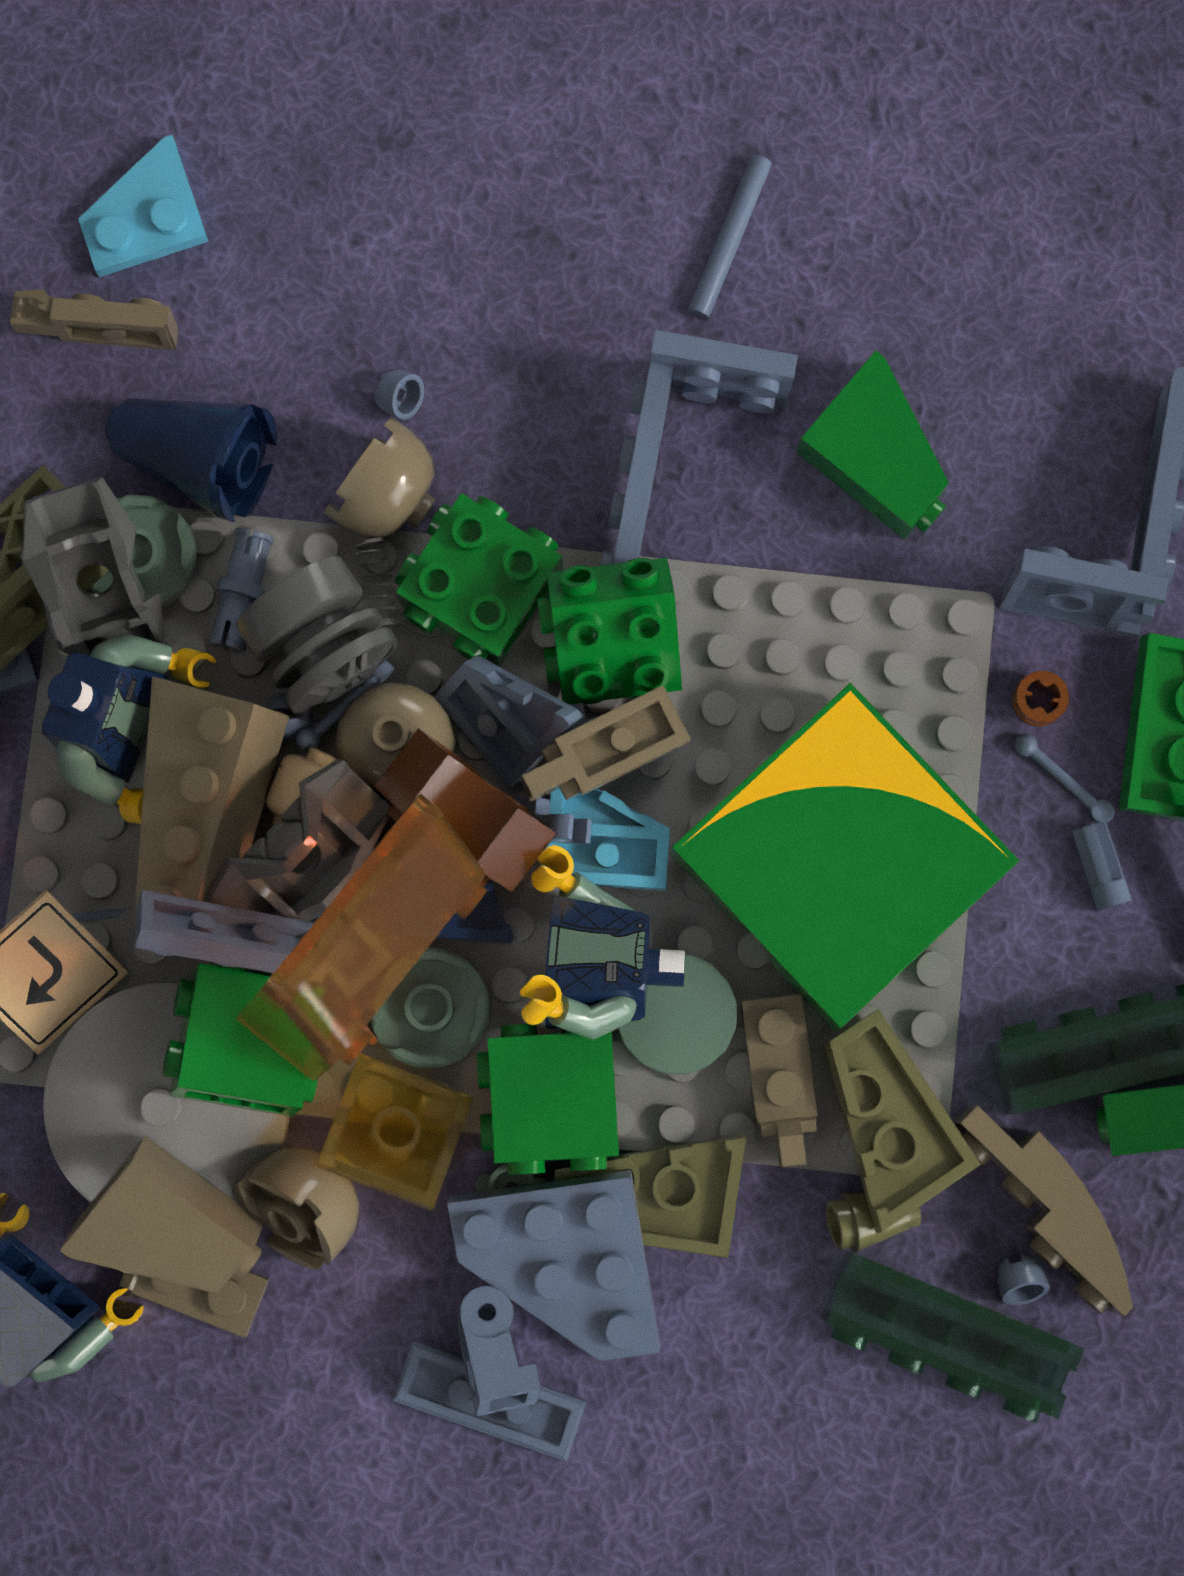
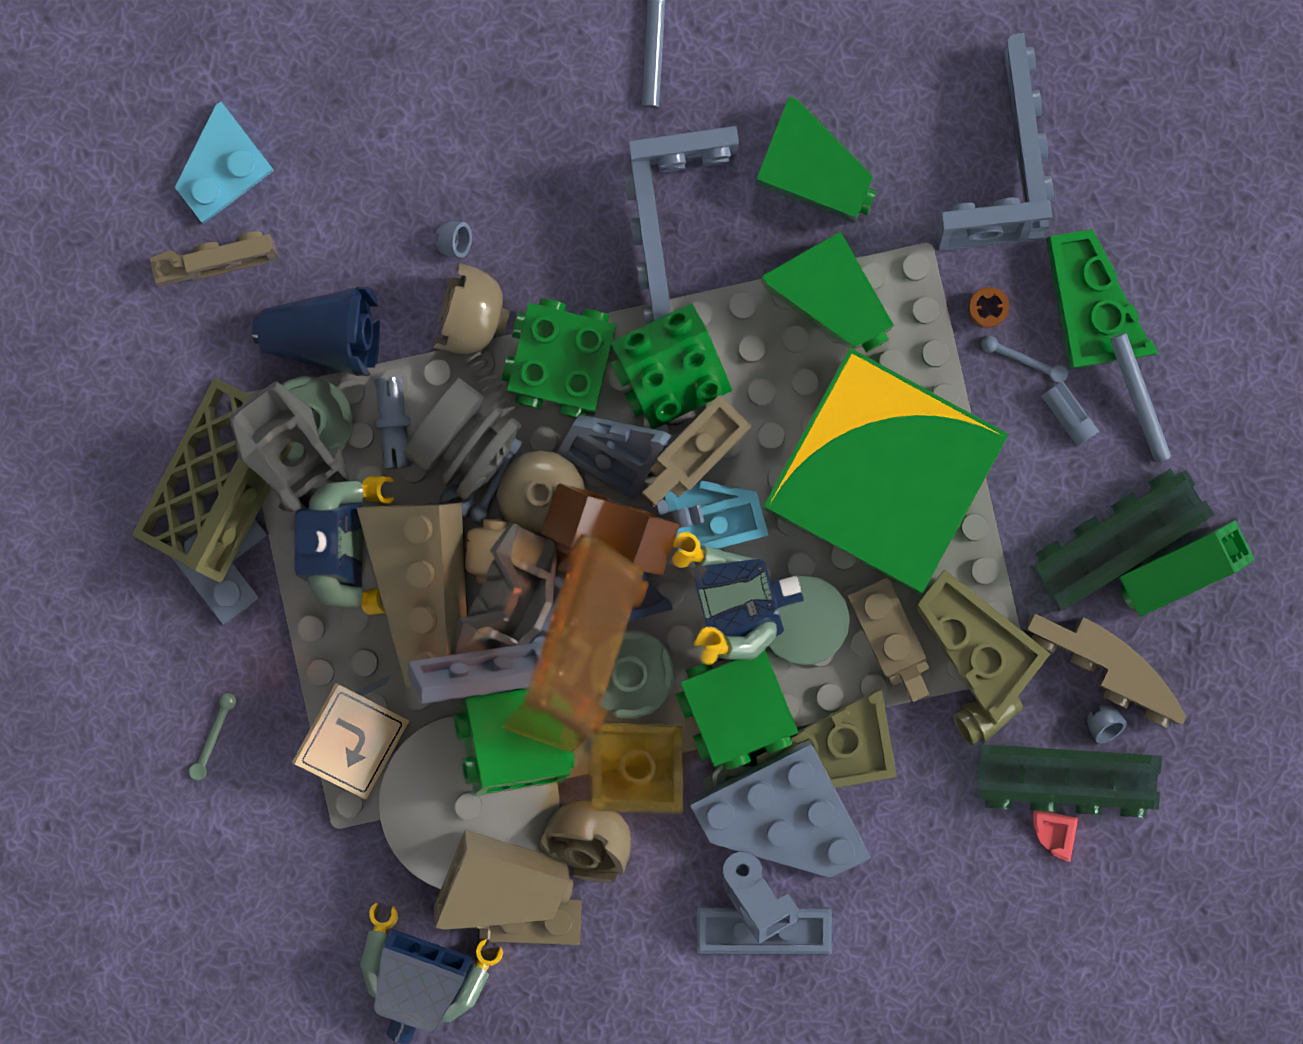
camera: 20 degrees left, 5 degrees up
(849, 611) = (832, 294): none -> green slope
(911, 1401) = (1055, 832): none -> coral tile

